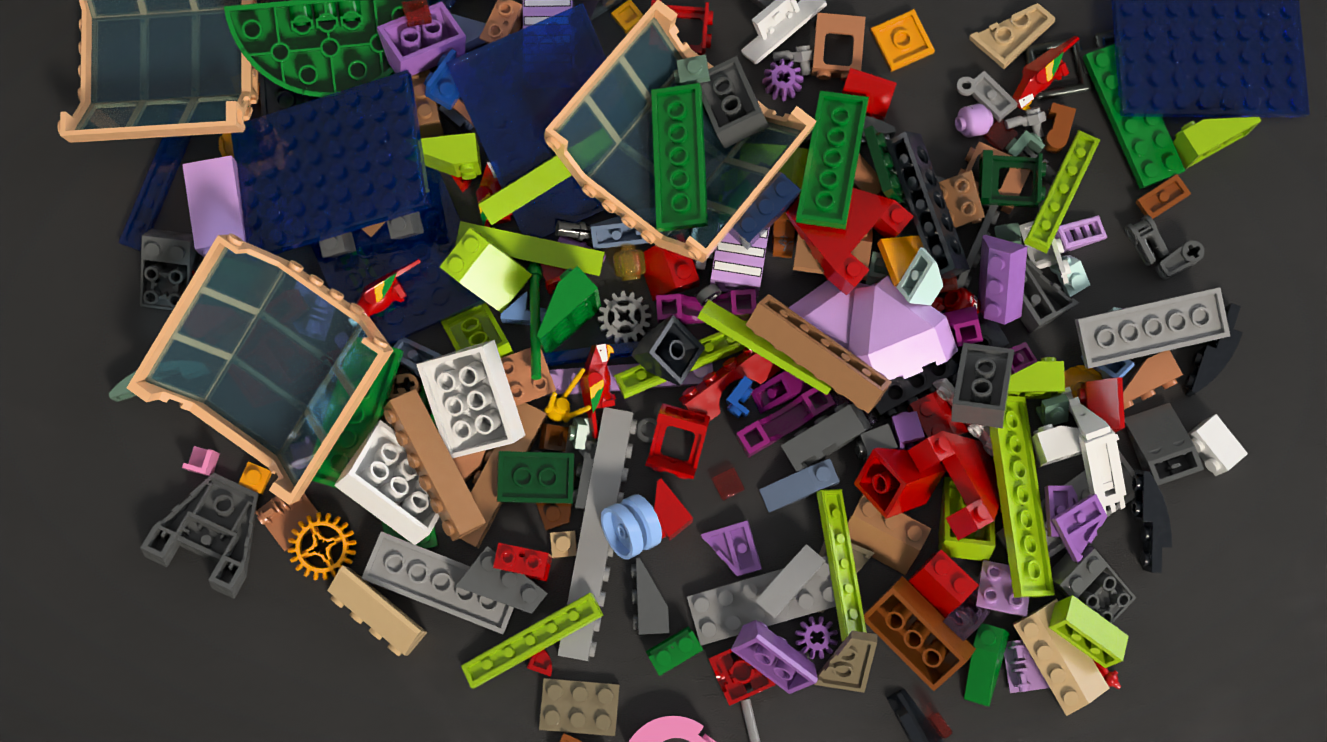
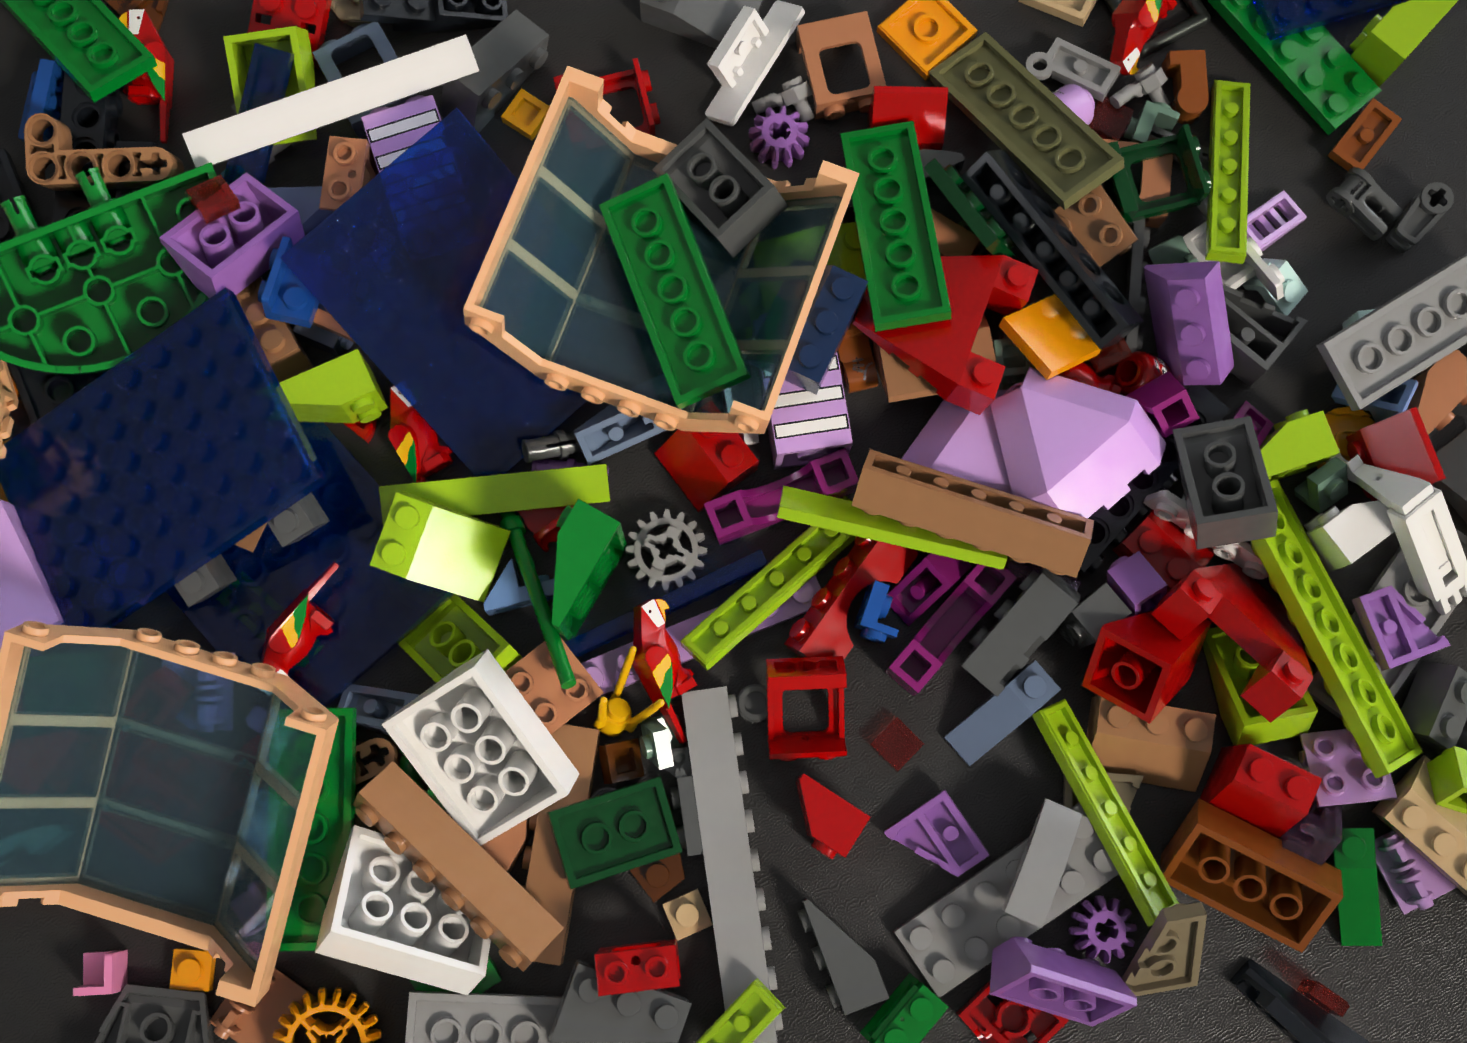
camera: 25 degrees left, 0 degrees up
(524, 189) = (459, 409): lime tile -> none
(629, 263) = (647, 468): clear yellow head -> none
(631, 526) = (783, 860): light blue wheel -> none
(668, 351) = (749, 579): black slope -> none
(692, 70) = (649, 159): sand green bracket -> none
(710, 293) = (778, 476): dark grey tile -> none
(921, 280) = (1086, 356): light aqua slope -> none
(941, 118) = (1027, 120): none -> olive plate
(1079, 524) = (1426, 638): medium lavender wing -> none

